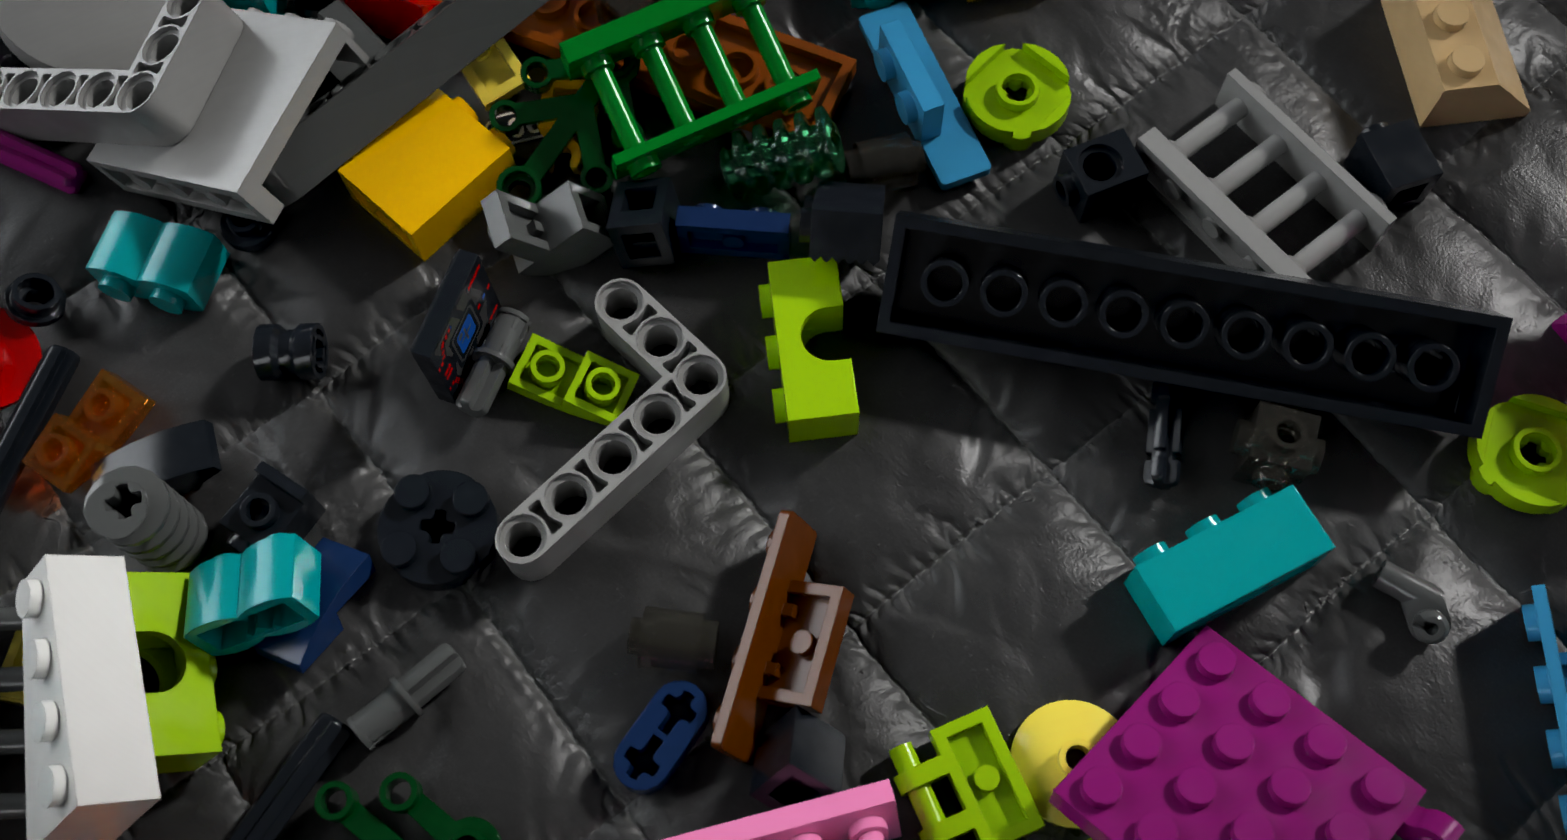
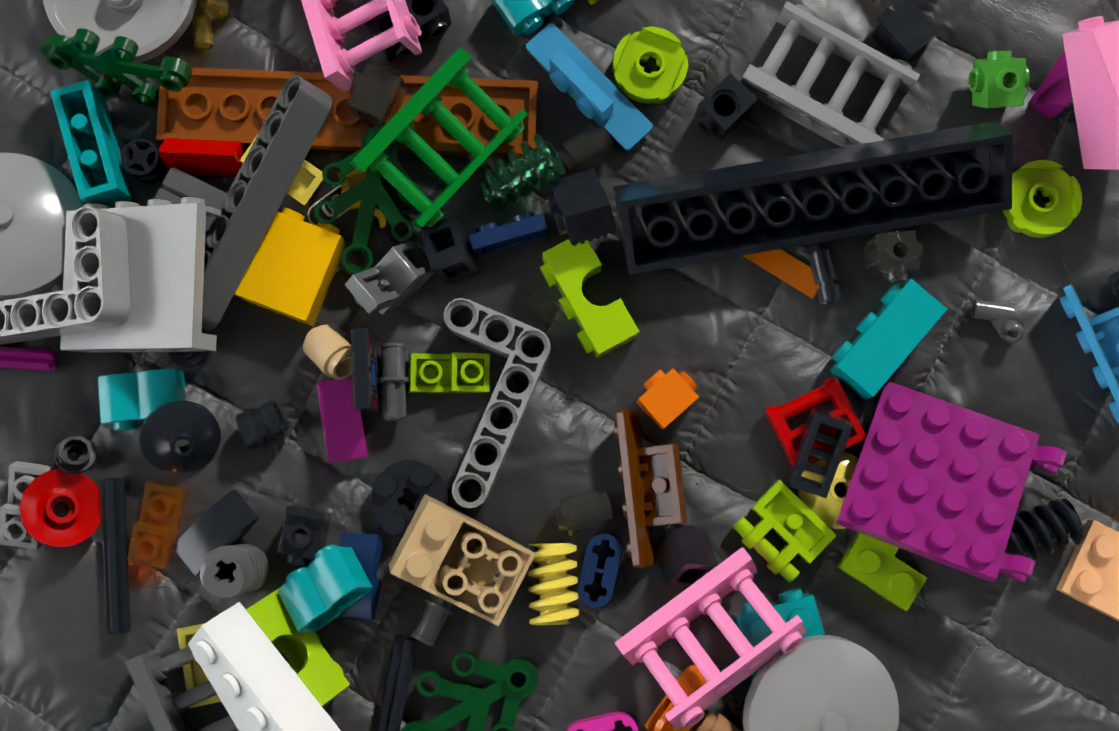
camera: 25 degrees left, 15 degrees up
(198, 309) = (176, 422): none -> black dish
(393, 391) = (341, 421): none -> magenta slope
(417, 282) = (329, 351): none -> tan brick
(460, 629) = (460, 560): none -> tan slope
(581, 724) = (553, 584): none -> light yellow piece
(865, 524) = (667, 396): none -> orange brick
(1077, 667) = (791, 440): none -> red plate
(1095, 644) = (833, 457): none -> black slope
(1105, 413) = (787, 269): none -> orange sticker
(1514, 267) = (998, 80): none -> bright green brick

